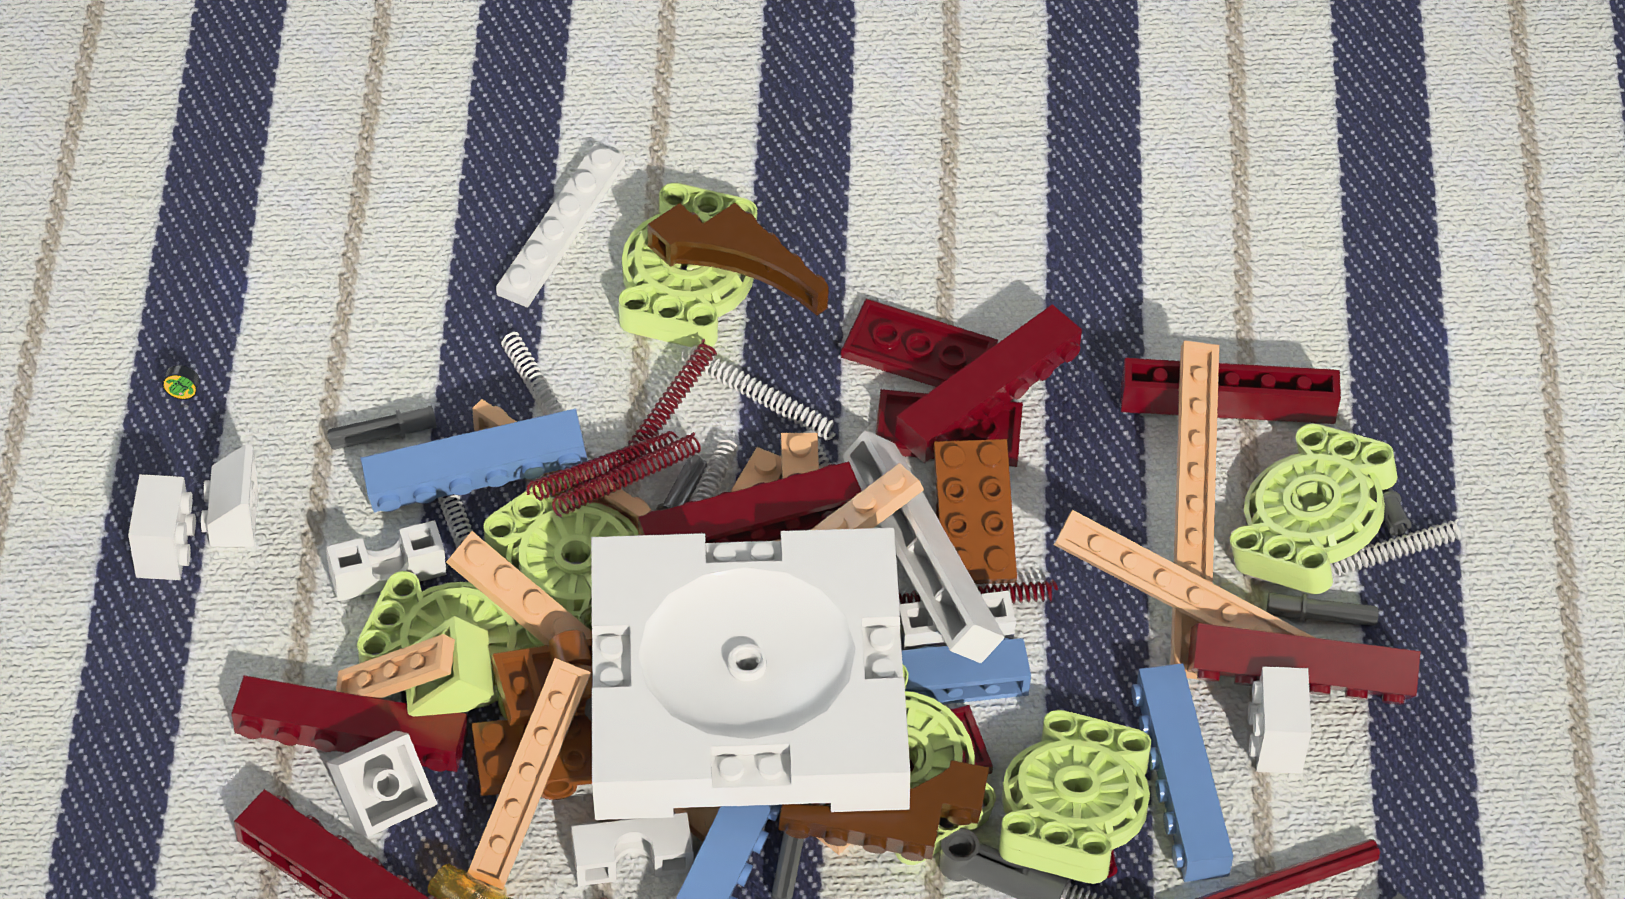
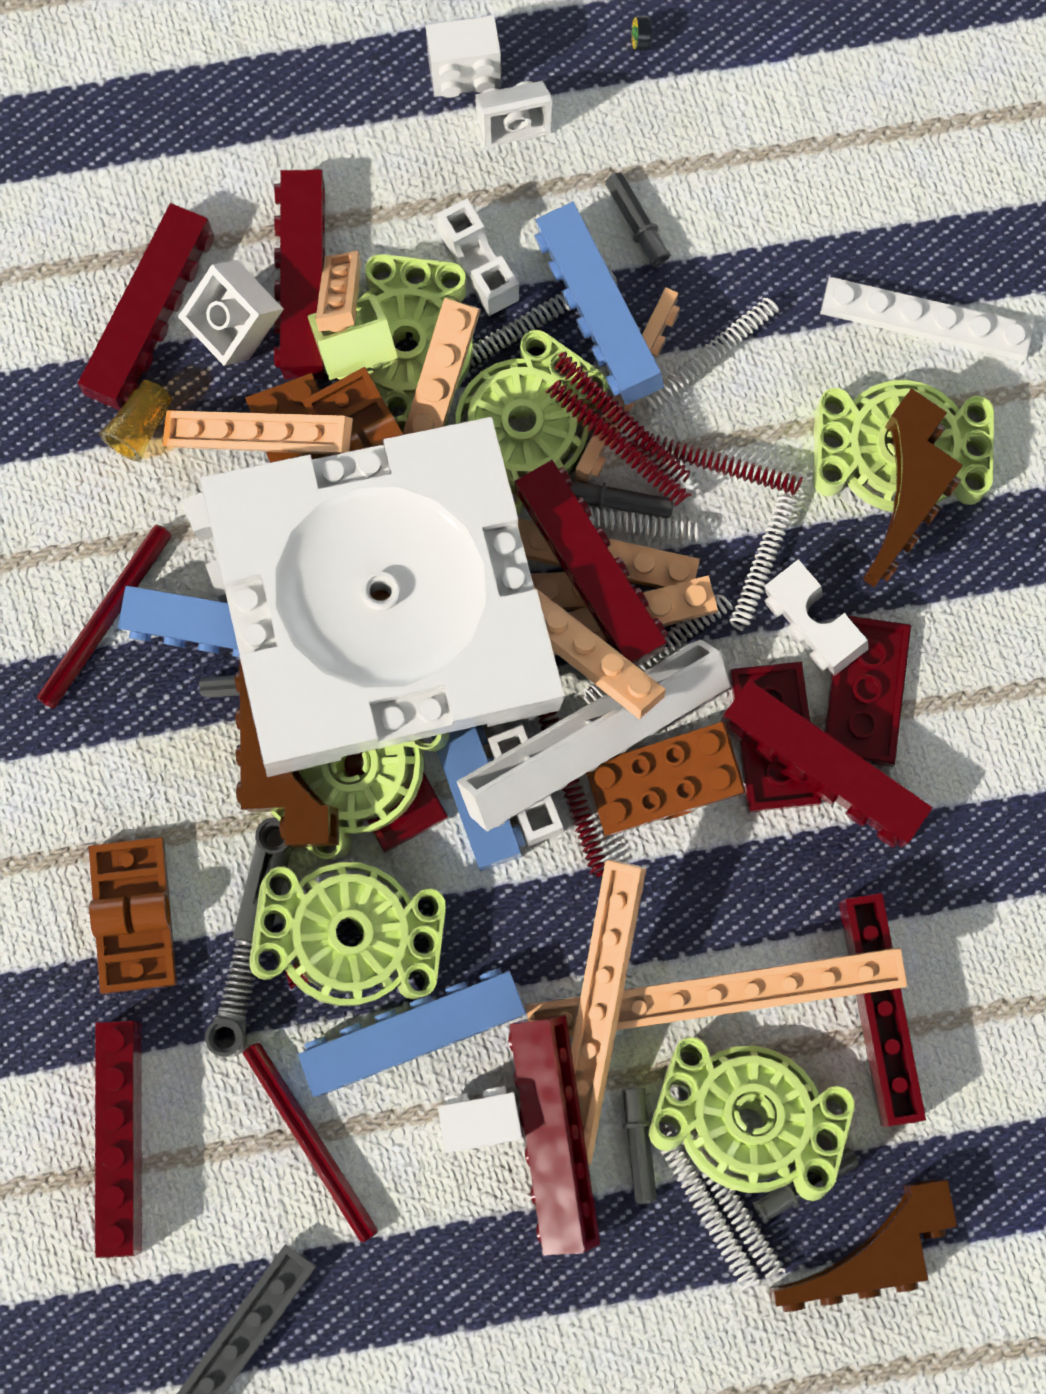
camera: 80 degrees right, 25 degrees up
(819, 378) = (832, 643): none -> white arch
(1445, 558) = (711, 1214): none -> white piece
(1454, 438) = (886, 1259): none -> reddish brown arch

